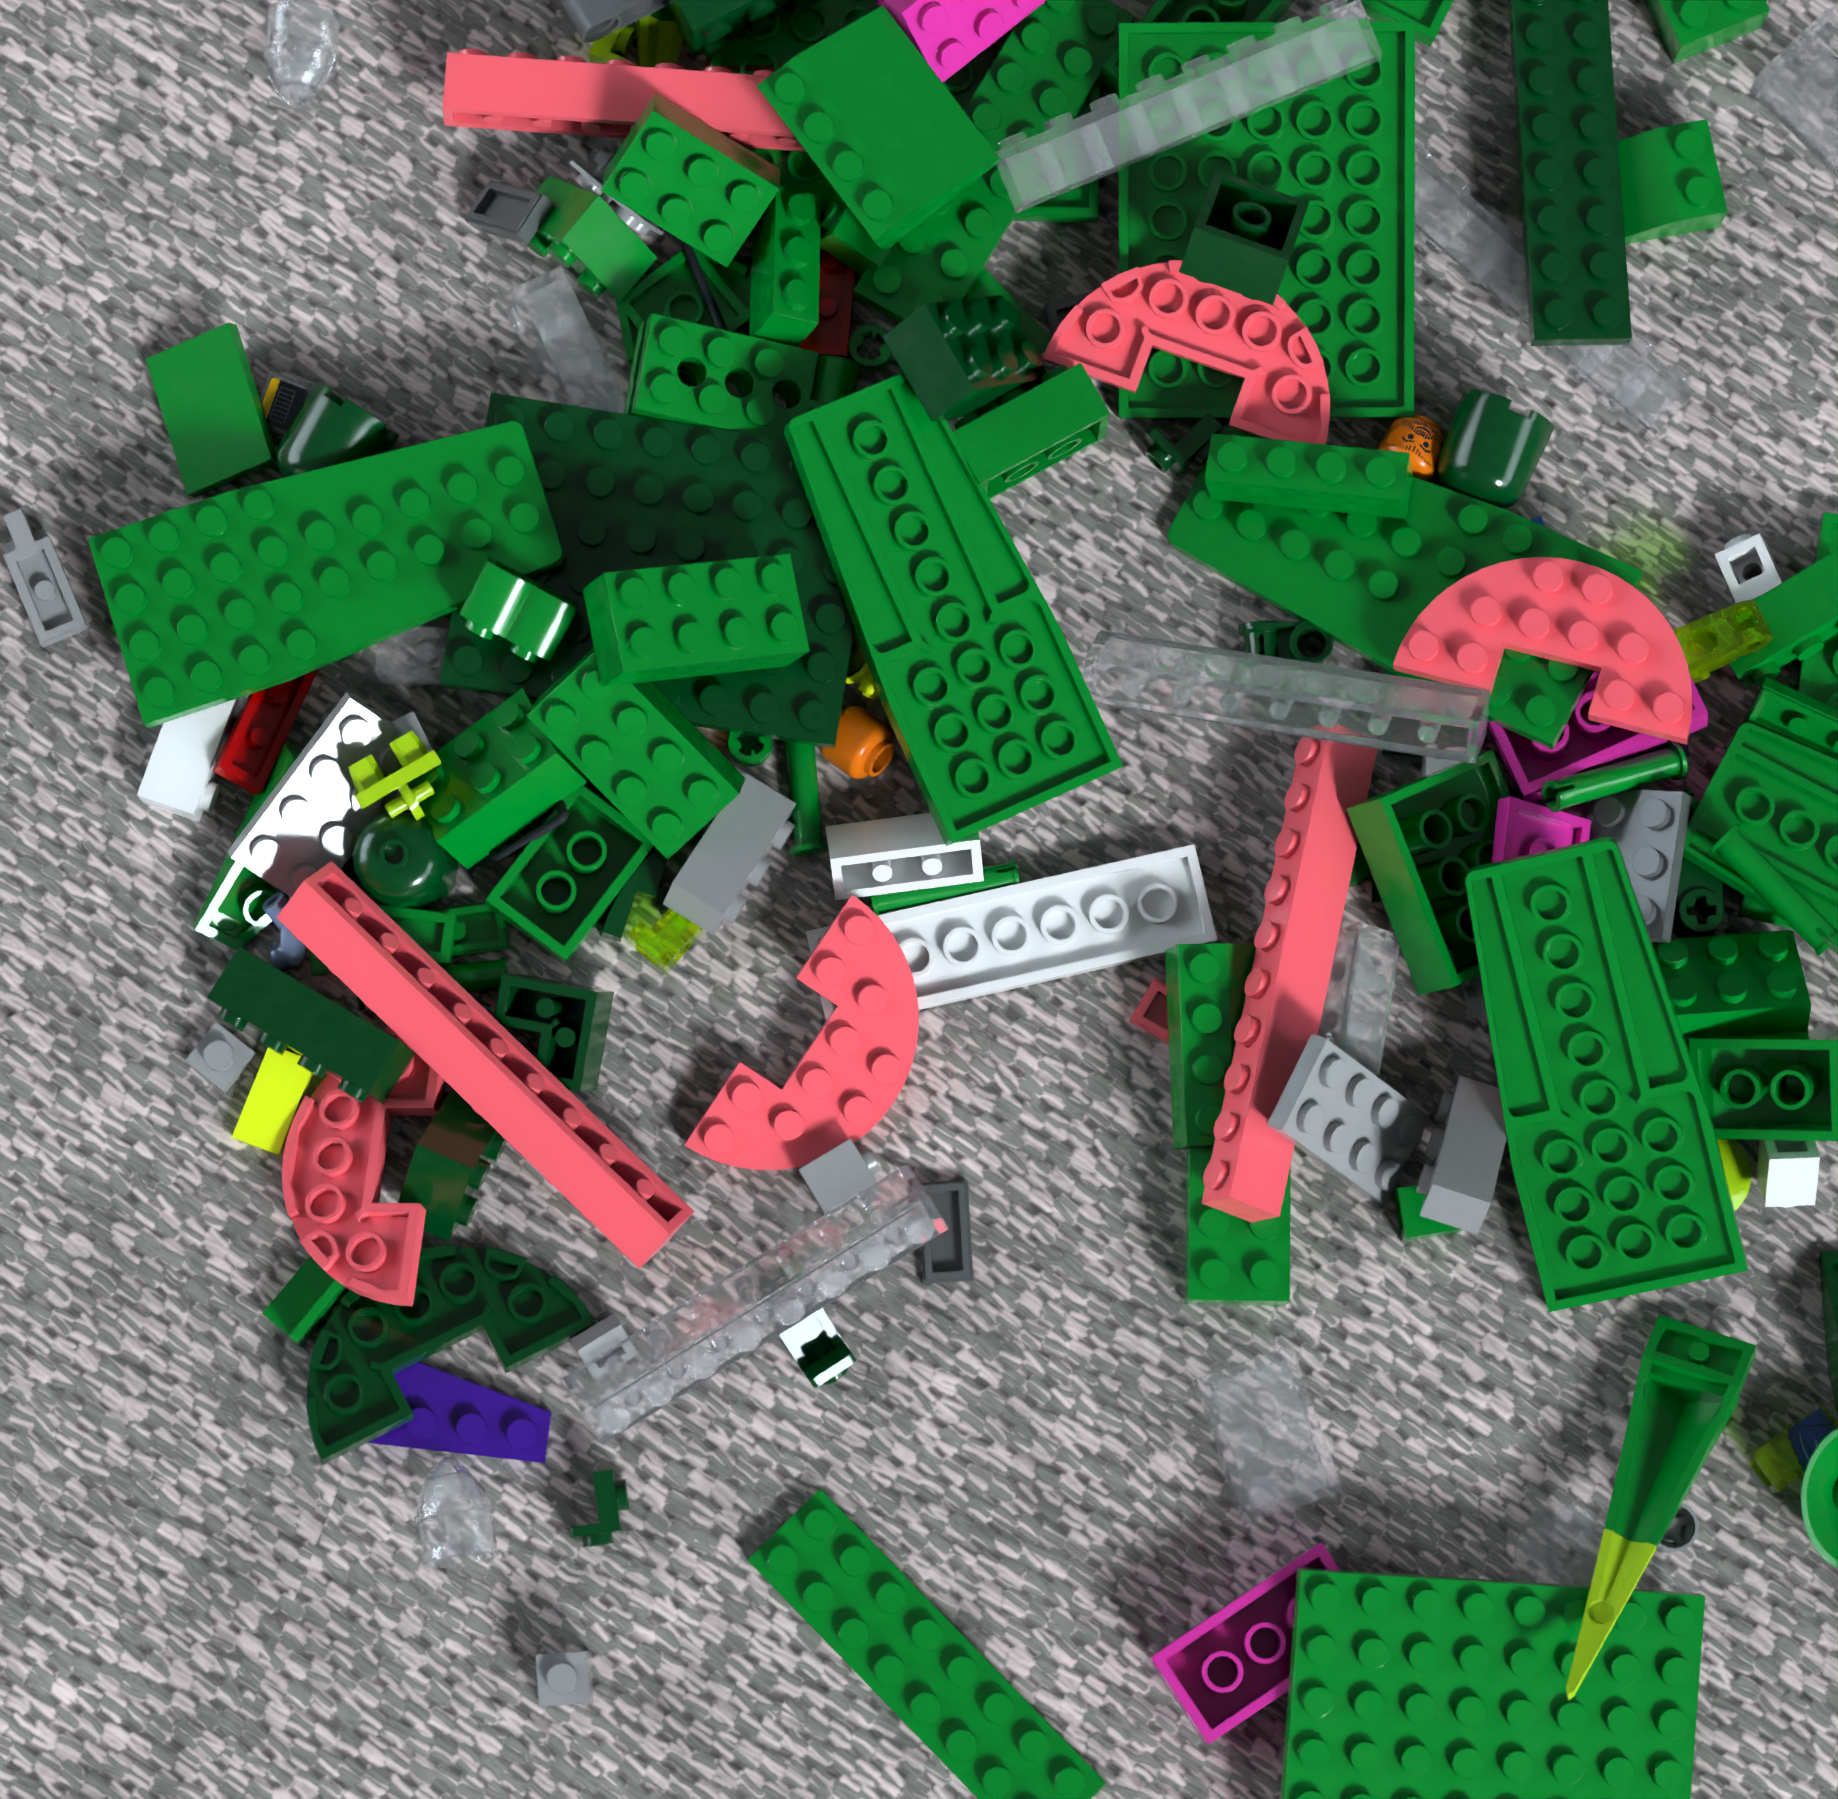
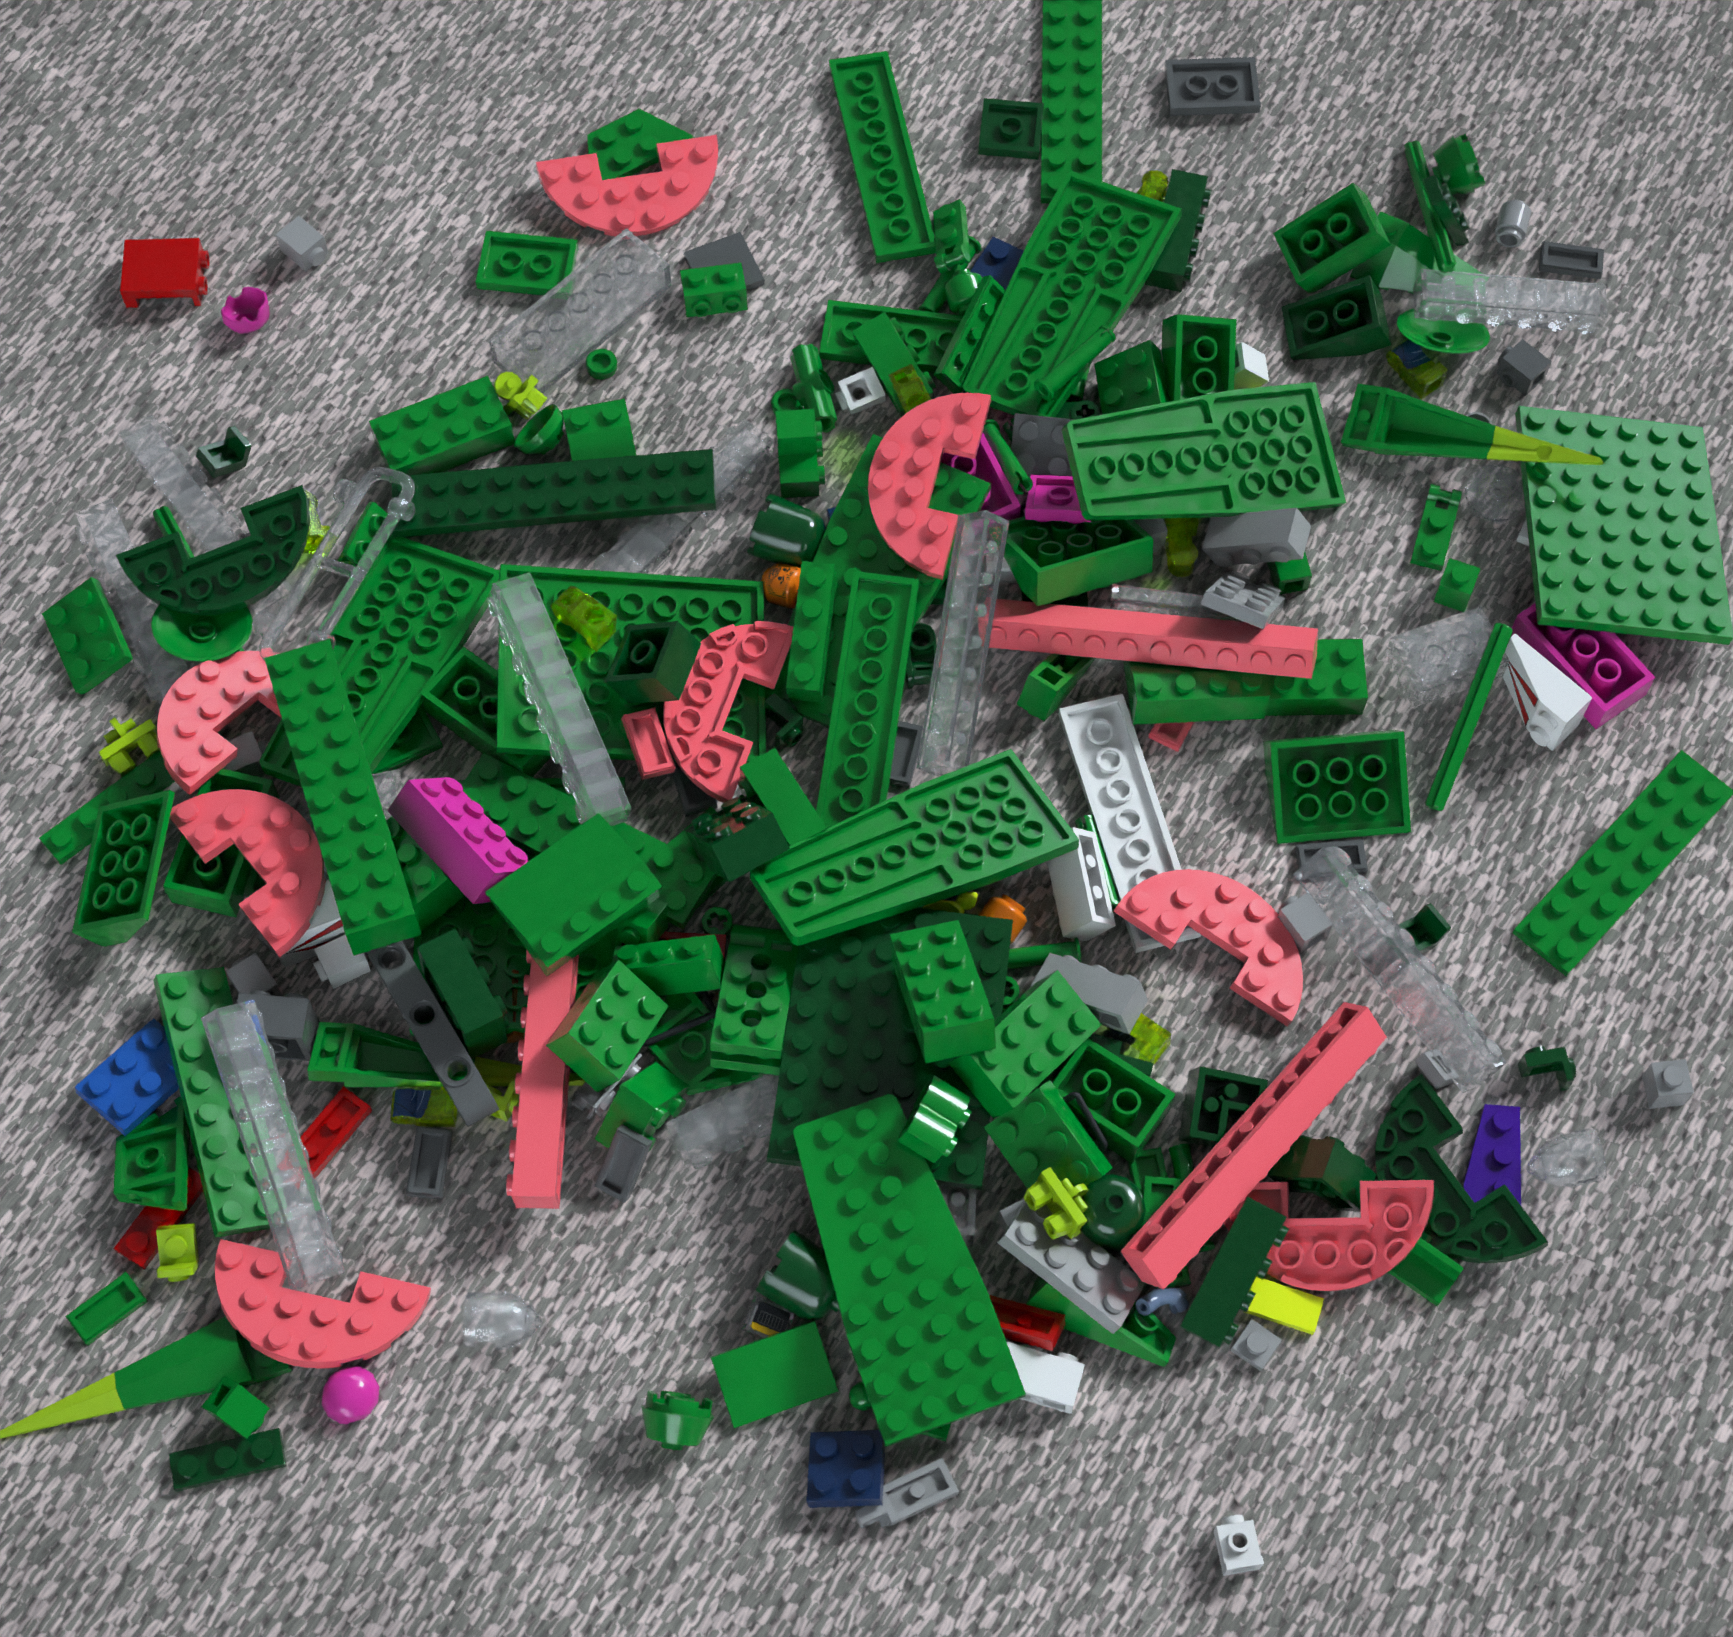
camera: 90 degrees left, 15 degrees down
(76, 496) = (845, 1469): none -> dark blue plate
(155, 279) = (676, 1419): none -> green cone
(1060, 1248) = (1338, 786): none -> green slope
(1131, 612) = (905, 754): none -> dark grey tile
(1134, 241) = (648, 743): none -> coral tile
(1156, 1451) = (1468, 717): none -> green axle
(1179, 1575) = (1543, 695): none -> white slope
(1205, 558) = (867, 695): none -> green plate
(1231, 832) = (1051, 683): none -> green slope
(1326, 142) = (585, 616): none -> clear neon green leg
(1393, 1466) = (1457, 585): none -> green brick
(1460, 1046) = (1180, 551): none -> clear neon green leg
(1504, 1450) = (1435, 528): none -> green plate
(1632, 474) = (798, 448): none -> green brick
(1679, 93) = (541, 432): none -> green piece
(1738, 465) = (785, 400): none -> green tile
(1740, 57) = (522, 396): none -> lime hips
(1757, 500) = (813, 385): none -> green piece
(1794, 1619) = (1522, 367): none -> dark grey brick
(1812, 188) = (601, 364): none -> green tile

